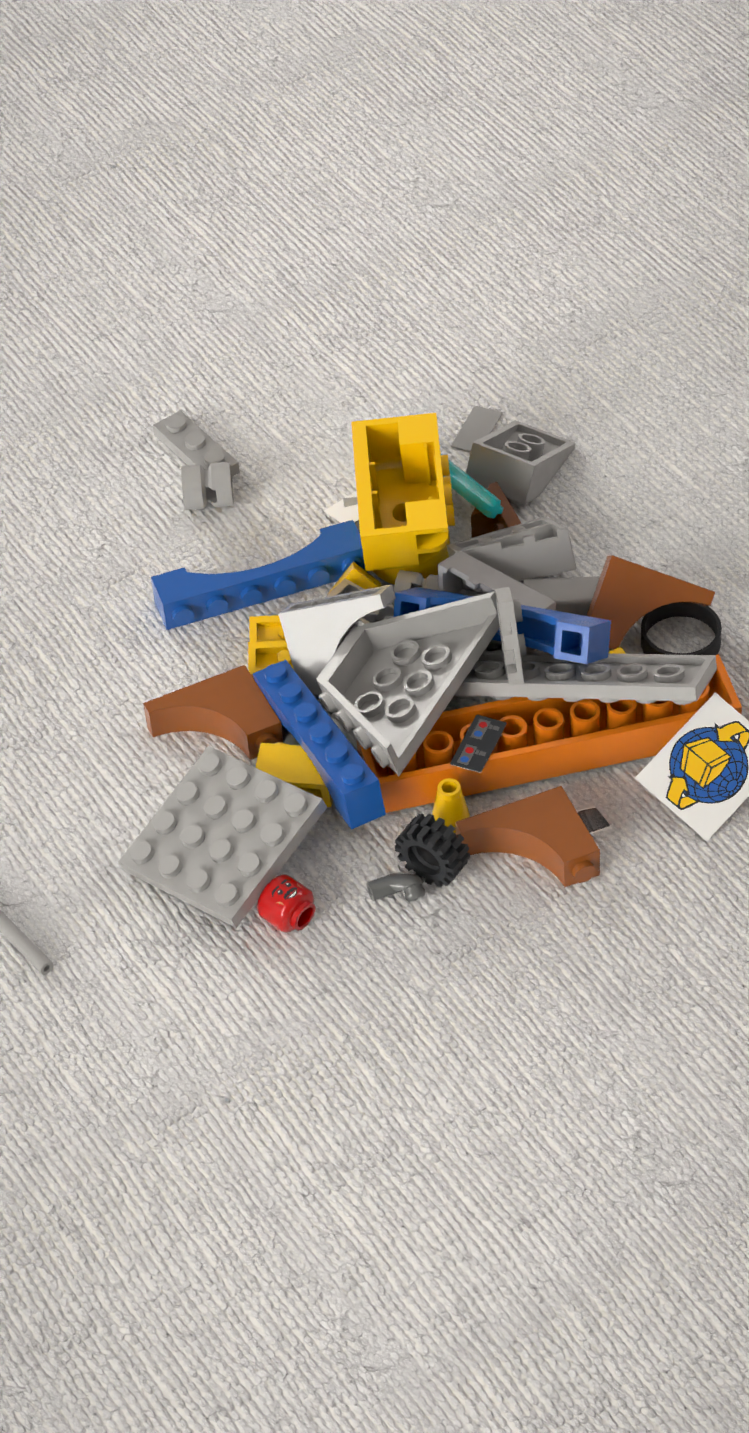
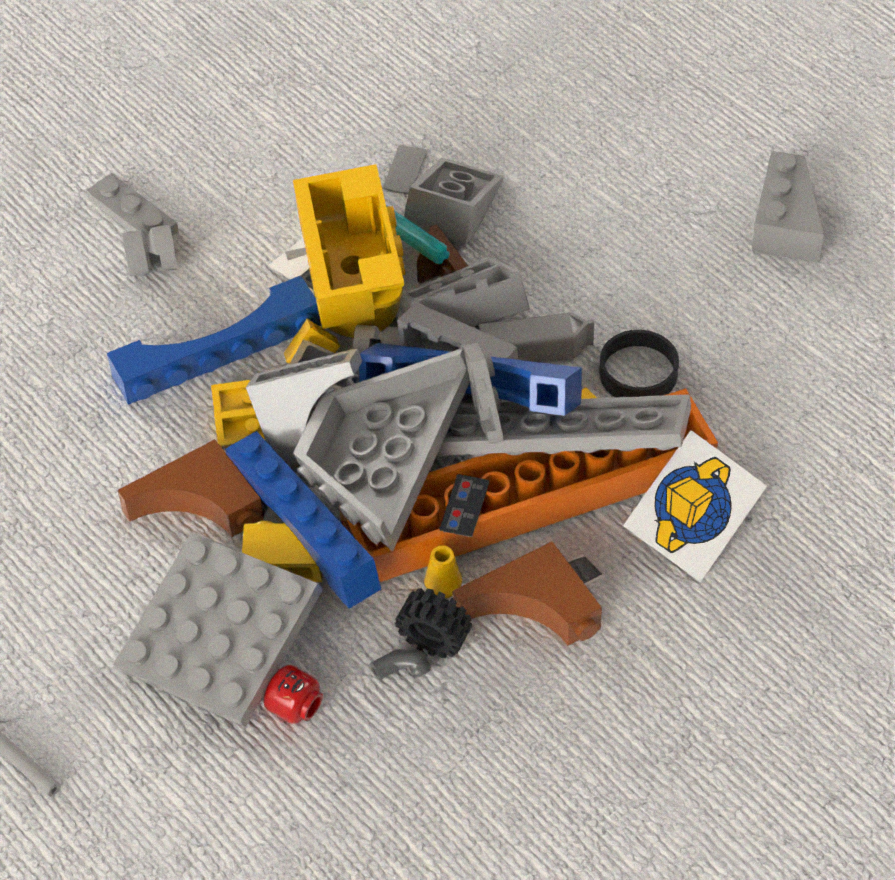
camera: 10 degrees left, 5 degrees up
(631, 591) = (588, 330): dark orange arch -> none

